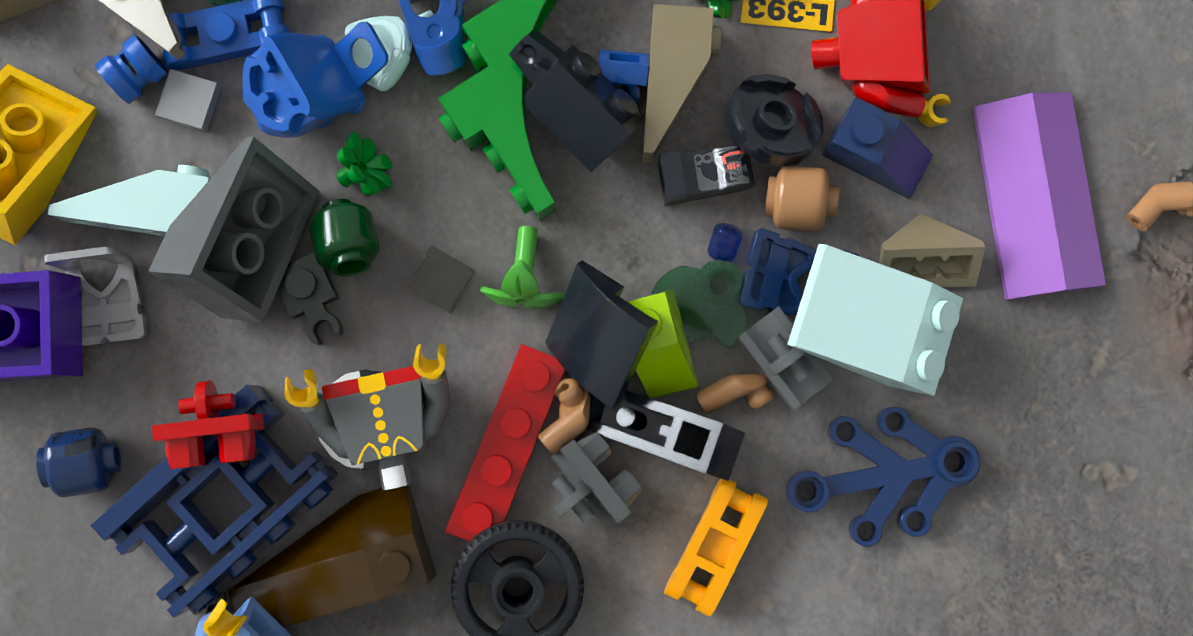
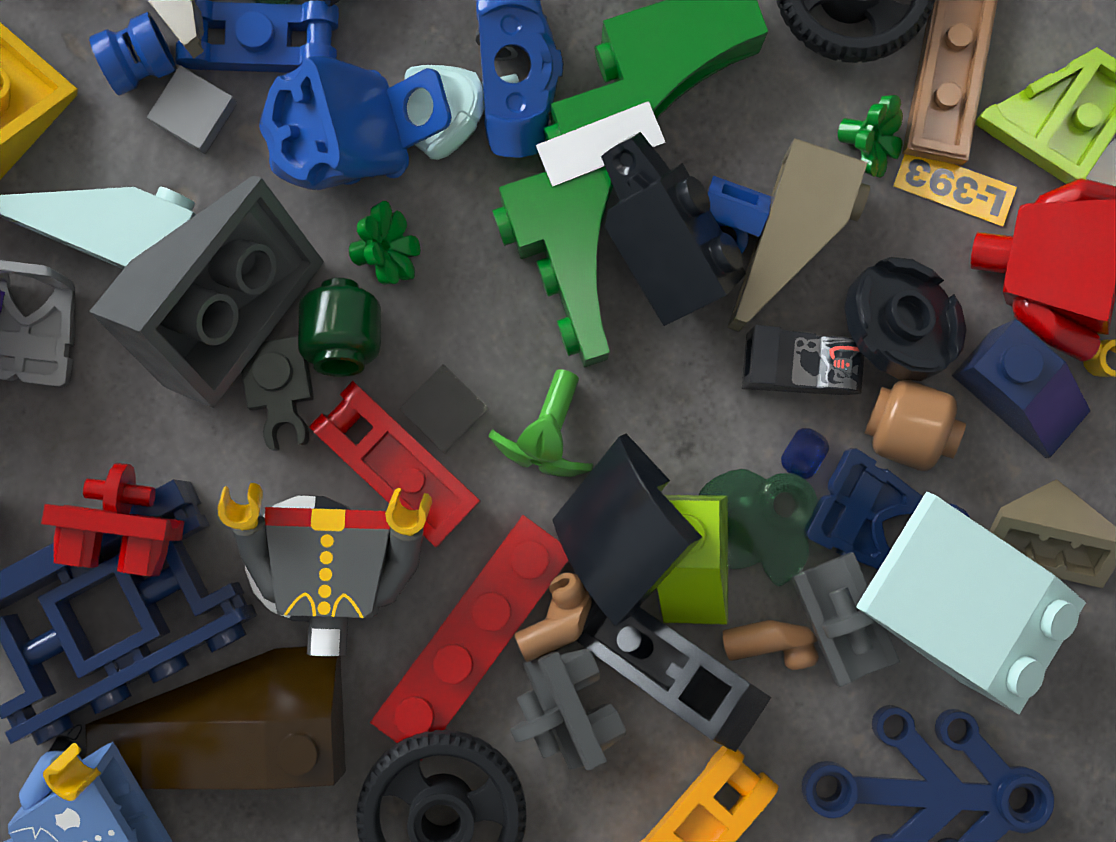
camera: 10 degrees right, 0 degrees up
(410, 325) = (393, 460): none -> red plate
(493, 53) = (582, 148): none -> white sticker

